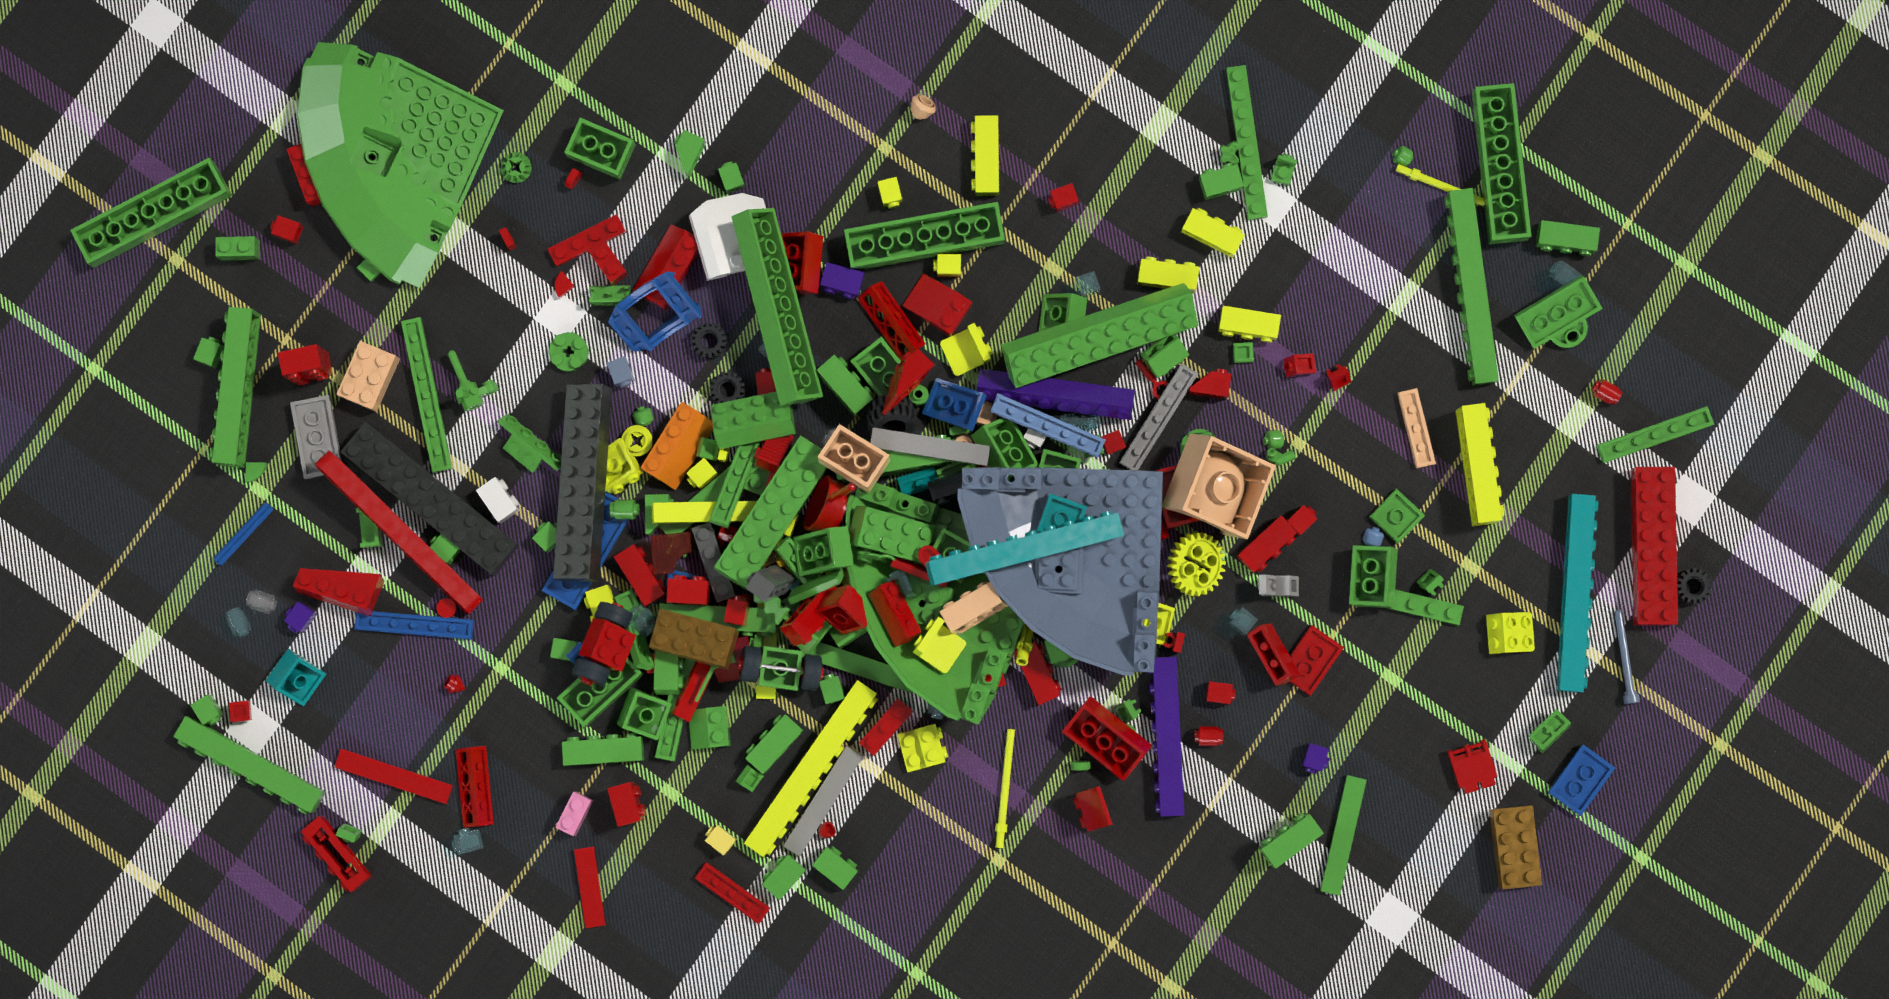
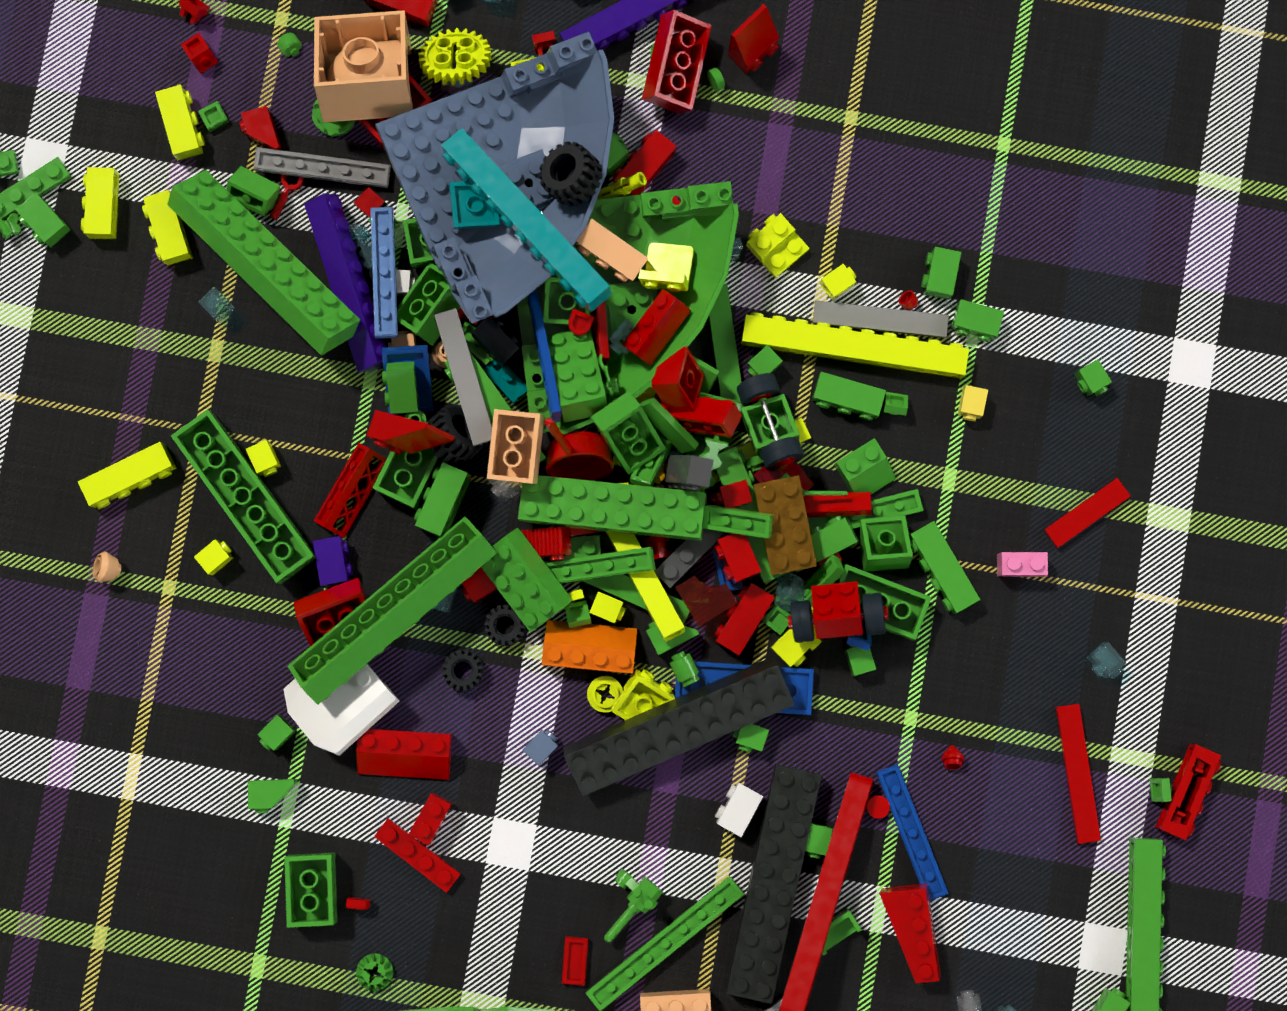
camera: 125 degrees left, 0 degrees up
(240, 711) = (1095, 970): red tile -> none
(295, 677) = (1030, 930): teal slope -> none
(299, 617) = (965, 958): dark purple brick -> none
(448, 321) = (575, 960): none -> red tile
(477, 786) = (1045, 680): red fence -> none
(507, 238) = (455, 941): red tile -> none
(527, 447) = (668, 806): bright green bracket -> none
(561, 343) = (553, 803): bright green plate -> none
(562, 285) = (477, 856): red tile -> none
(608, 295) = (464, 800): bright green hinge -> none
(627, 804) = (987, 514): red brick -> none
(643, 416) = (576, 701): bright green piece -> none
(676, 298) = (432, 726): blue wedge -> none
(691, 945) = (1093, 379): none -> bright green brick
(712, 602) = (738, 521): none -> bright green plate
(732, 893) = (1018, 365): red tile -> none
(868, 782) = (838, 281): none -> neon yellow brick
(886, 727) = (775, 290): red brick -> none
(912, 514) = (544, 356): none -> blue tile
(937, 305) = (310, 449): red slope -> none
(948, 396) = (402, 387): none -> bright green brick
(957, 431) = (434, 365): bright green plate -> none
(966, 350) = (344, 396): neon yellow bracket -> none
(1001, 827) = (817, 129): neon yellow bar -> none
(1053, 592) = (558, 167): none -> black tyre
(1061, 309) = (257, 319): bright green slope -> none
(1063, 198) = (135, 373): red brick -> none
(1127, 711) = (638, 58): bright green tile -> none
(1279, 458) = (306, 29): bright green arm -> none

